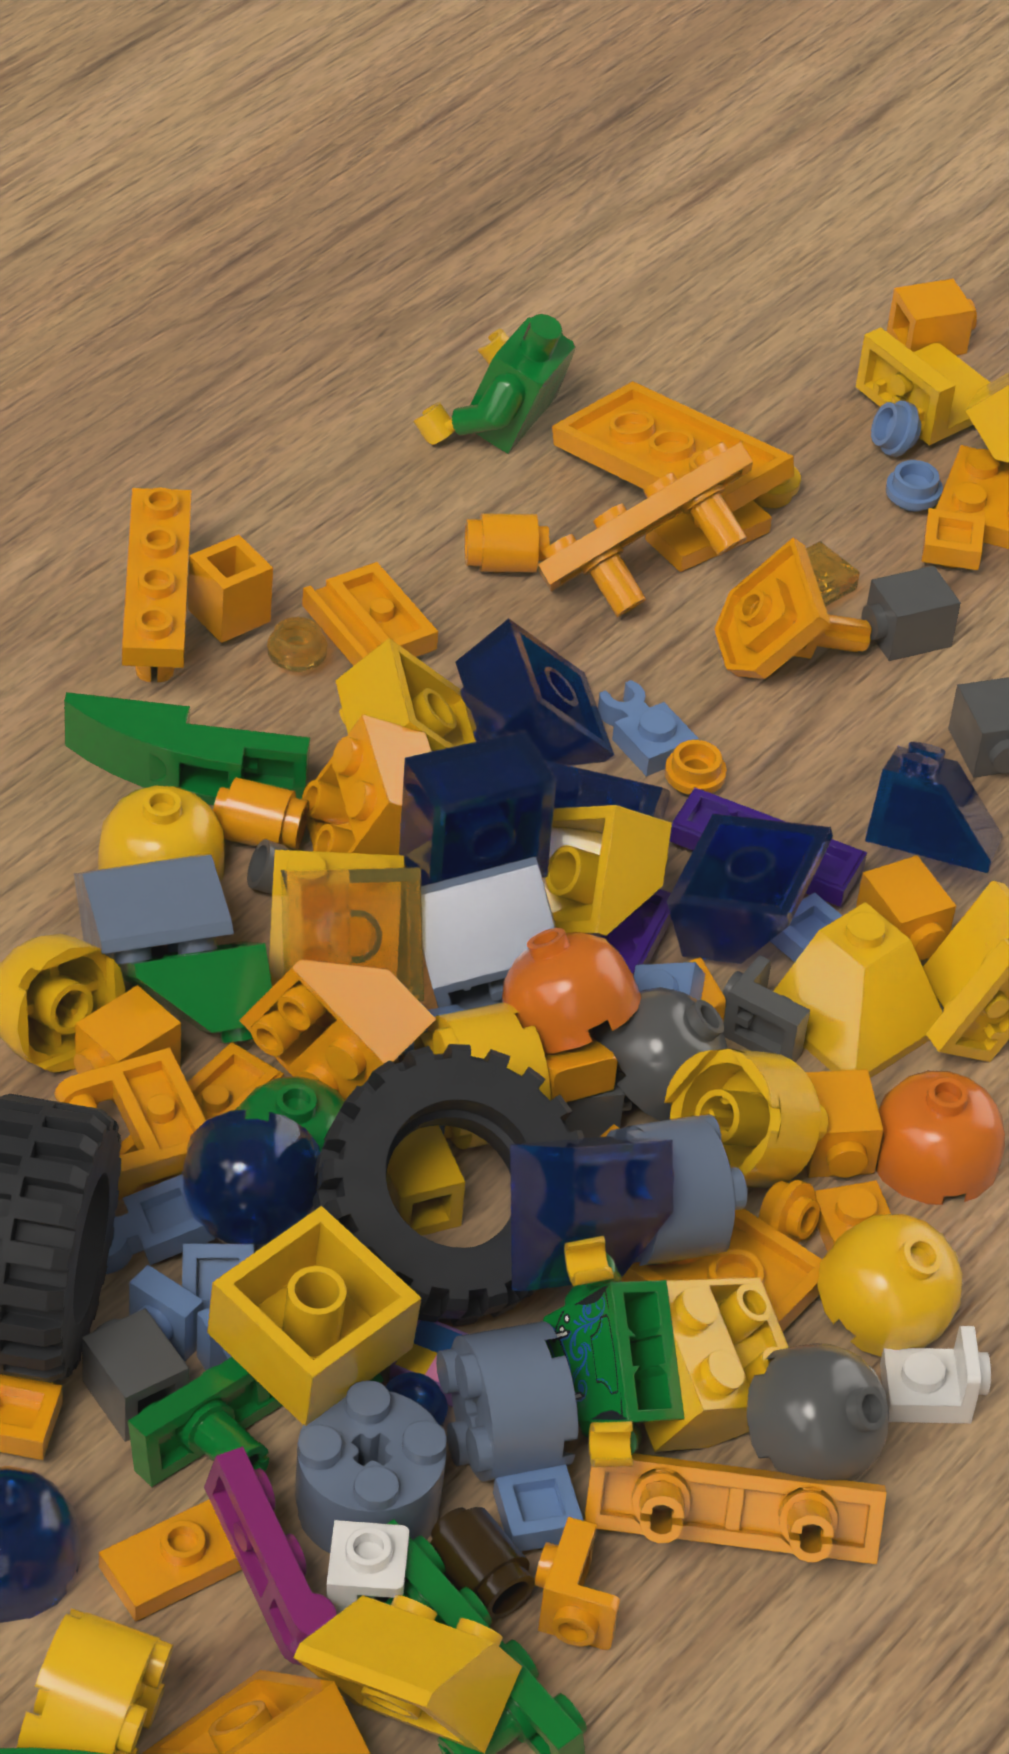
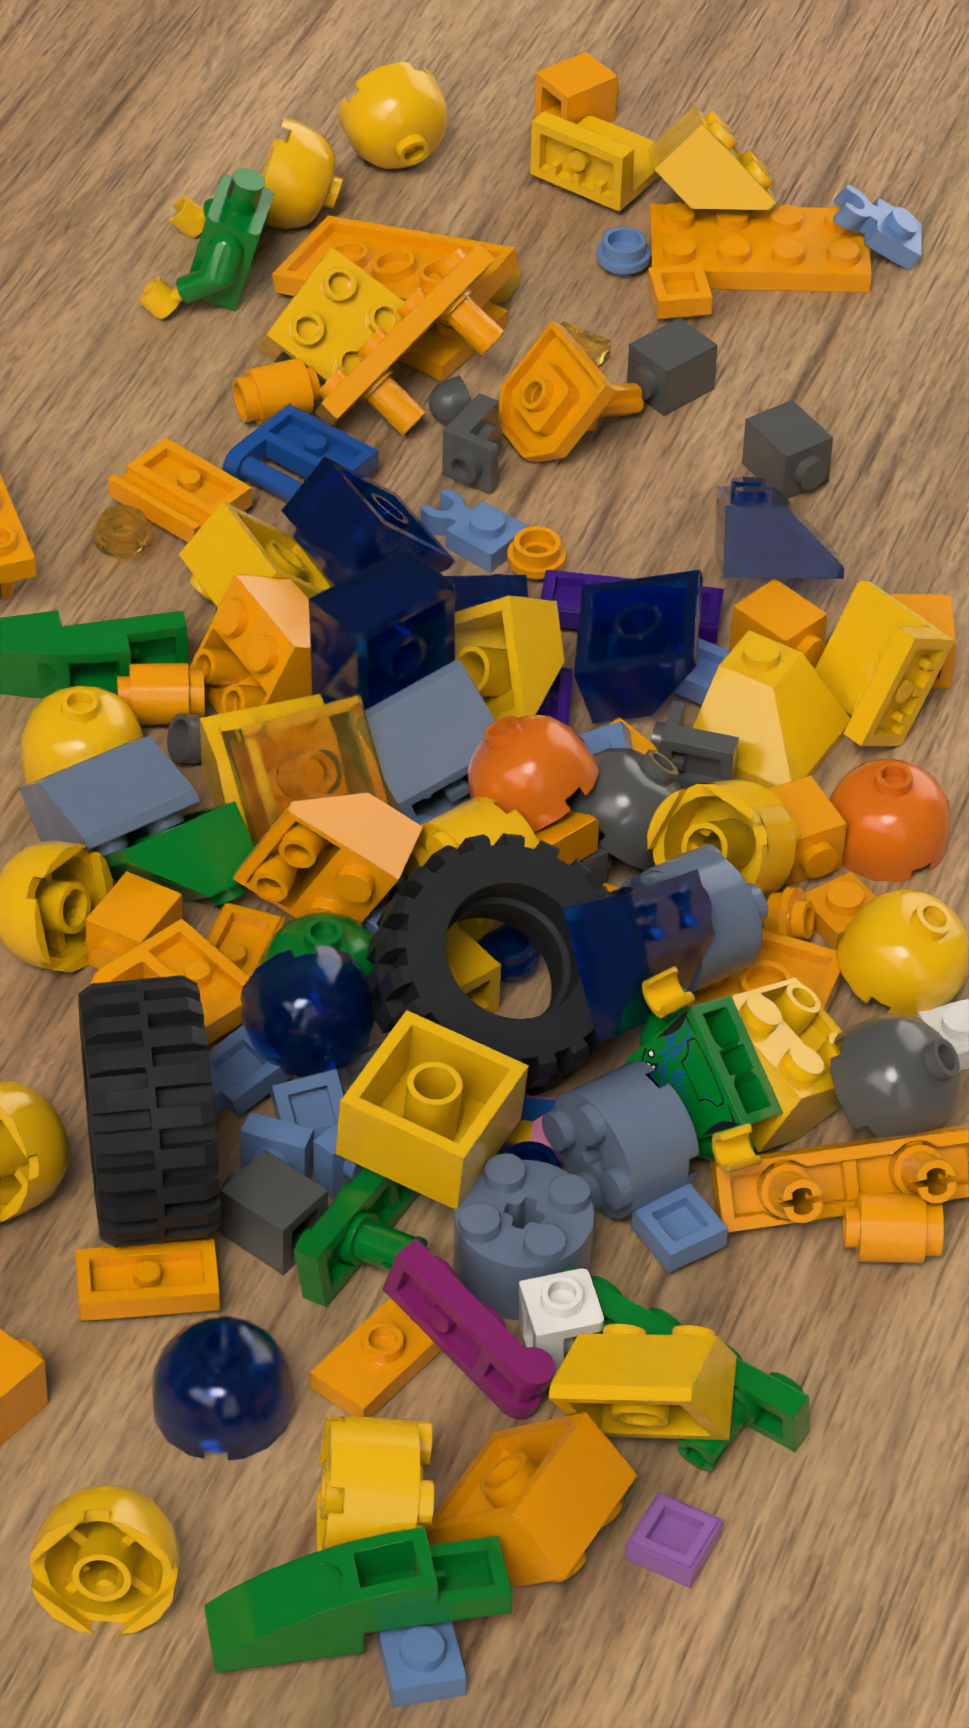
camera: 15 degrees left, 0 degrees up
(230, 588) = (46, 492): light orange brick -> none
(483, 1559) = (653, 1279): dark brown brick -> none
(485, 1173) = (513, 951): none -> clear blue plate
(501, 594) = (299, 445): none -> blue plate
(568, 1608) = (743, 1301): light orange bracket -> none
(583, 480) = (332, 317): none -> yellow bracket
(615, 337) = (300, 176): none -> yellow cylinder
(675, 595) = (449, 399): none -> dark grey hinge
(677, 640) = (473, 445): none -> dark grey bracket
(736, 298) = (395, 116): none -> yellow cylinder
(757, 1573) = (893, 1228): none -> light orange brick
(896, 427) = (586, 201): medium blue plate -> none

